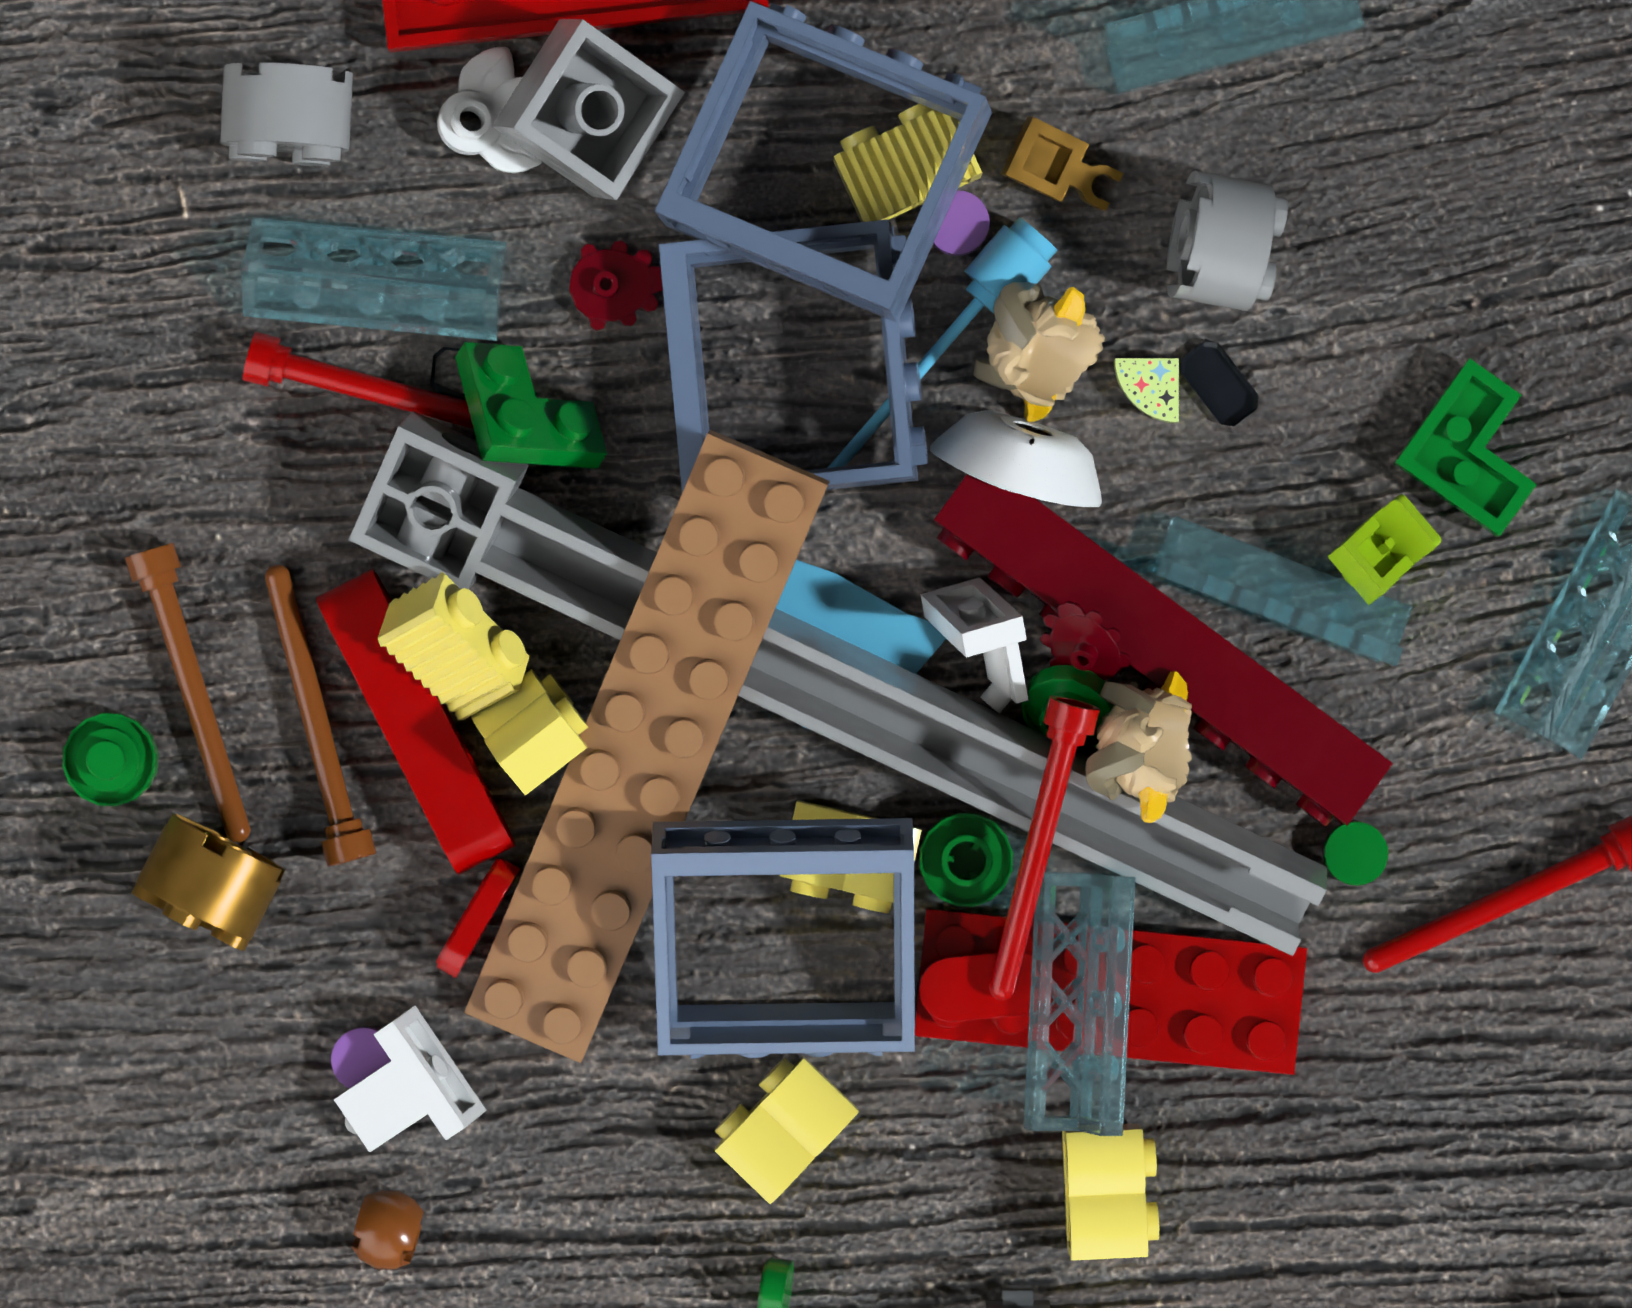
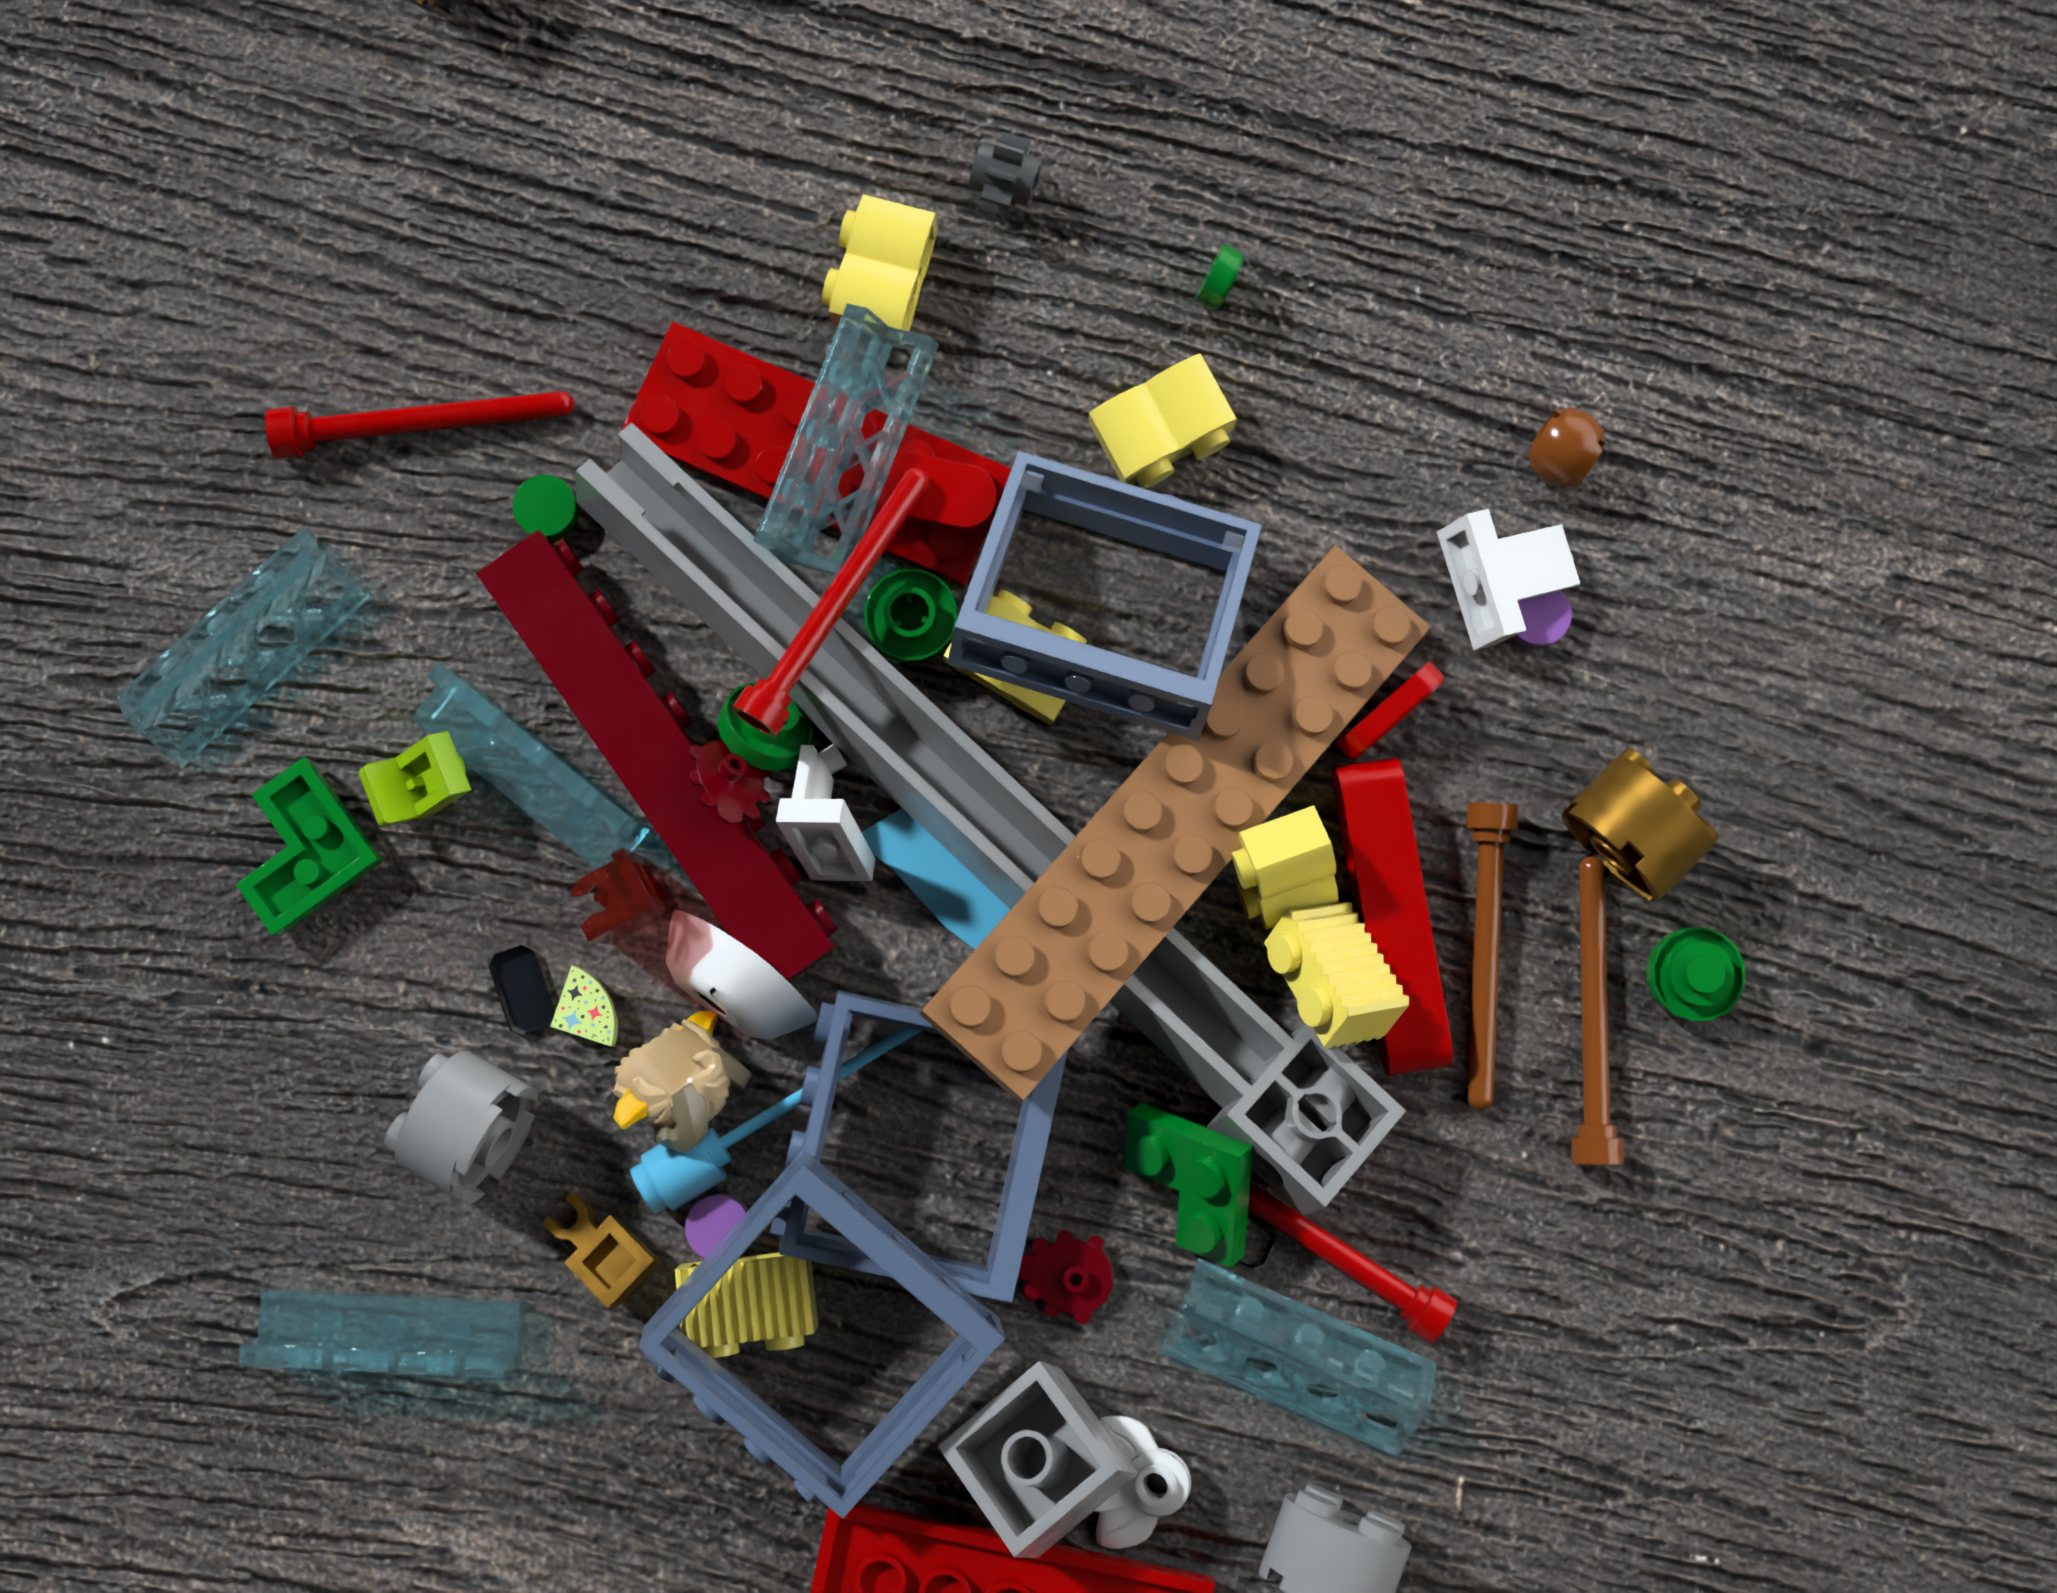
camera: 165 degrees left, 5 degrees down
(1140, 507) = (628, 895): none -> clear red hinge
(1143, 744) = (704, 664): hair -> none

